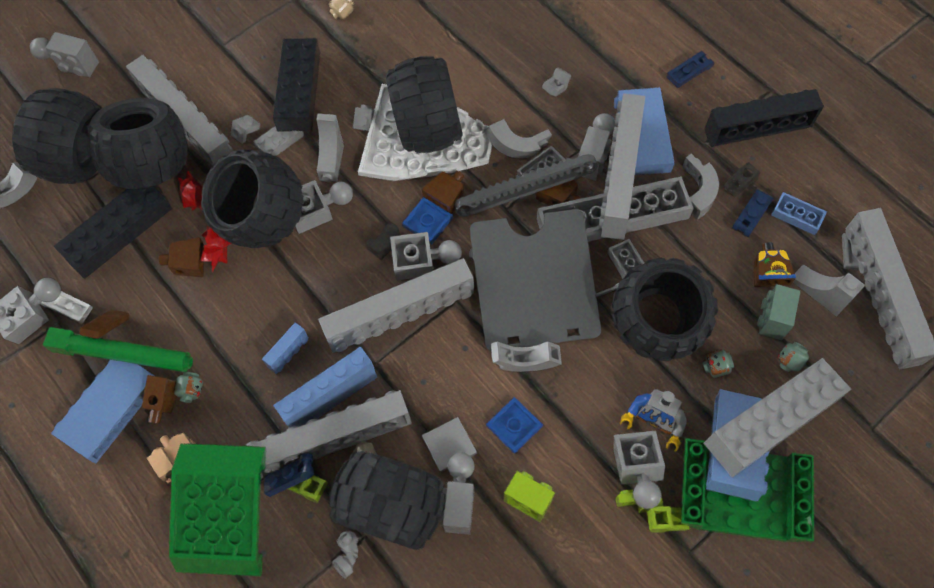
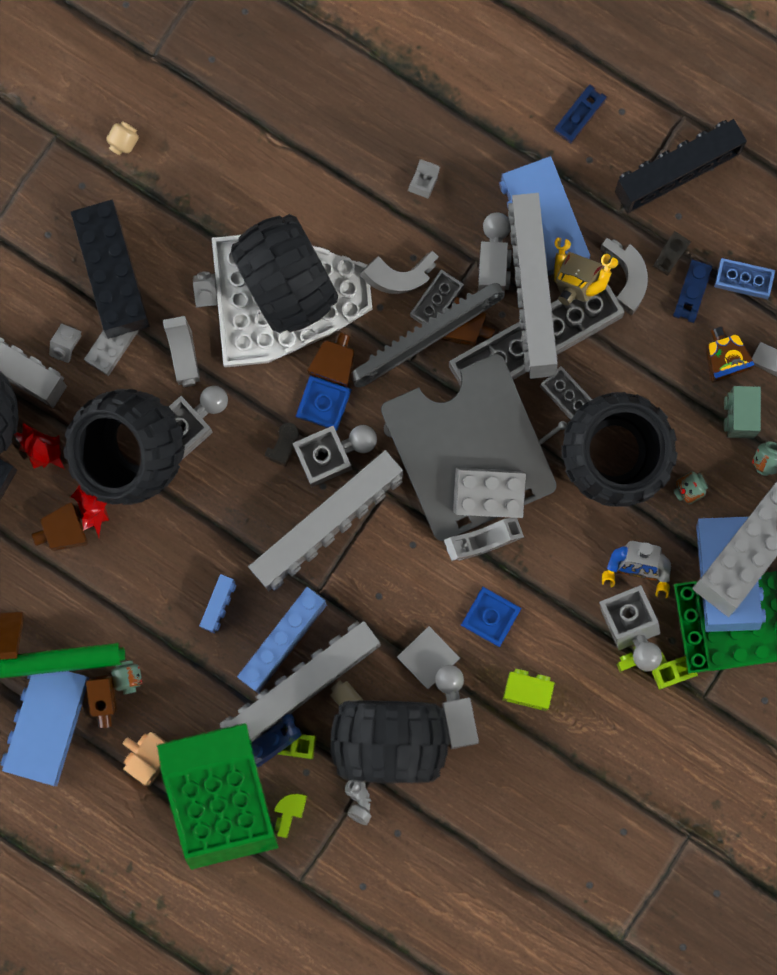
camera: 15 degrees left, 15 degrees up
(283, 540) = (290, 806): none -> lime brick
(542, 318) = (489, 492): none -> light grey brick
(662, 170) = (580, 276): none -> torso

